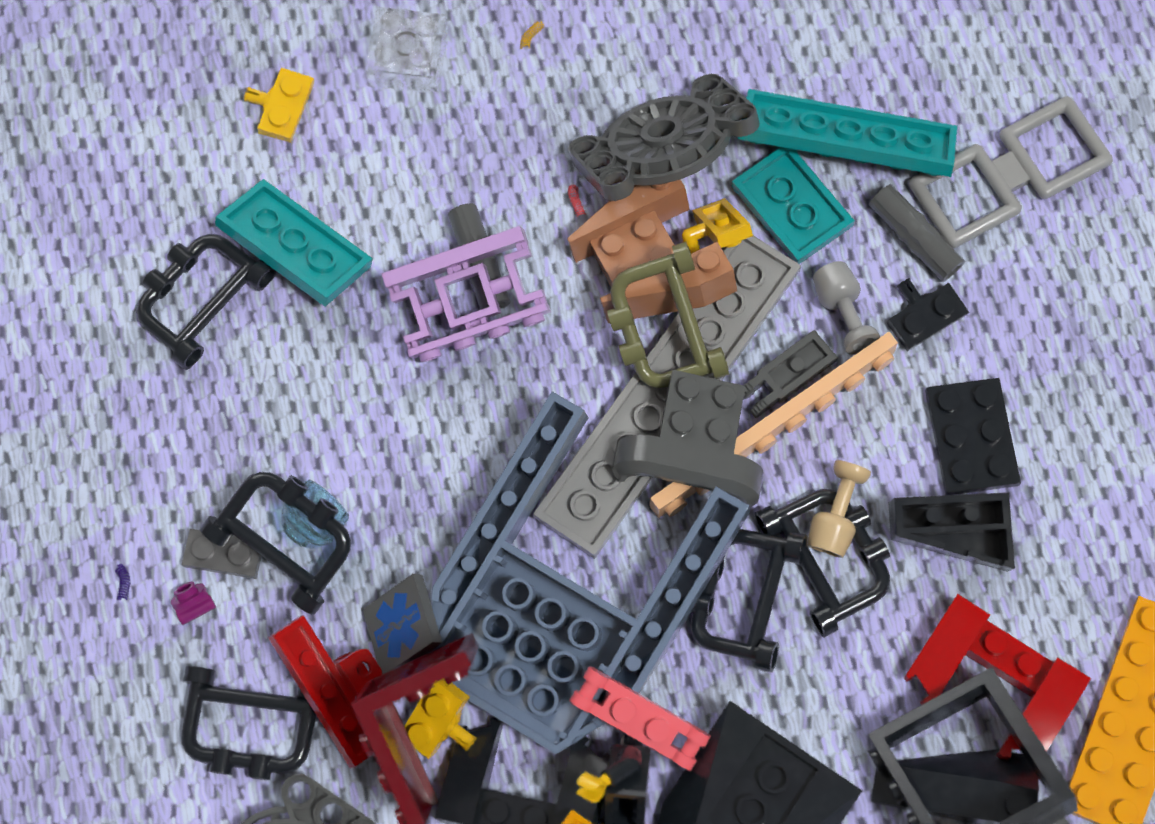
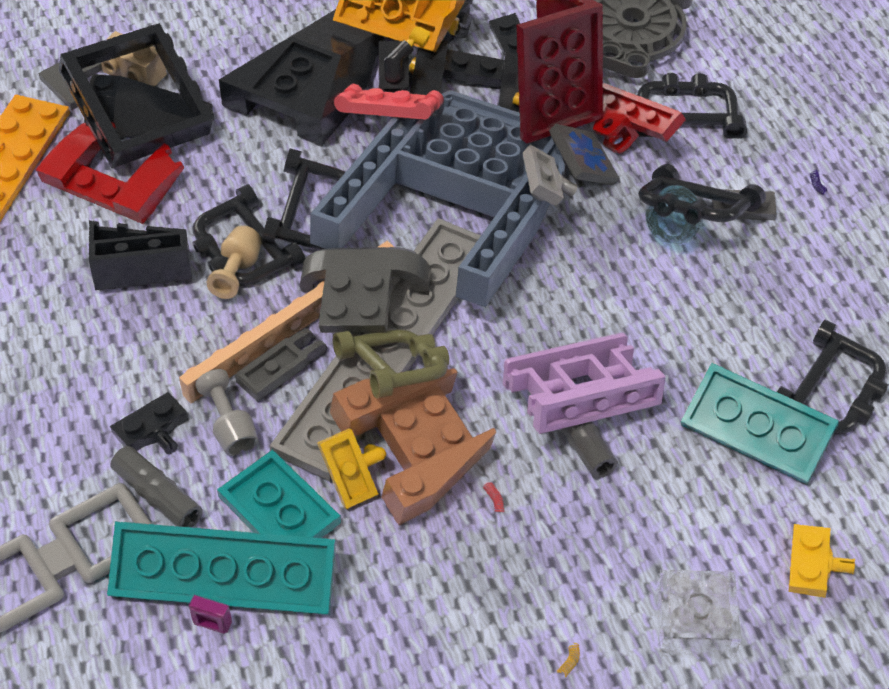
camera: 170 degrees right, 20 degrees down
(191, 601) = (758, 172): magenta plate -> none
(462, 548) = (544, 177): none -> light grey plate
(692, 132) = (441, 542): dark grey piece -> none
(858, 93) = (210, 614): none -> magenta tile
(972, 436) = (115, 334): black plate -> none

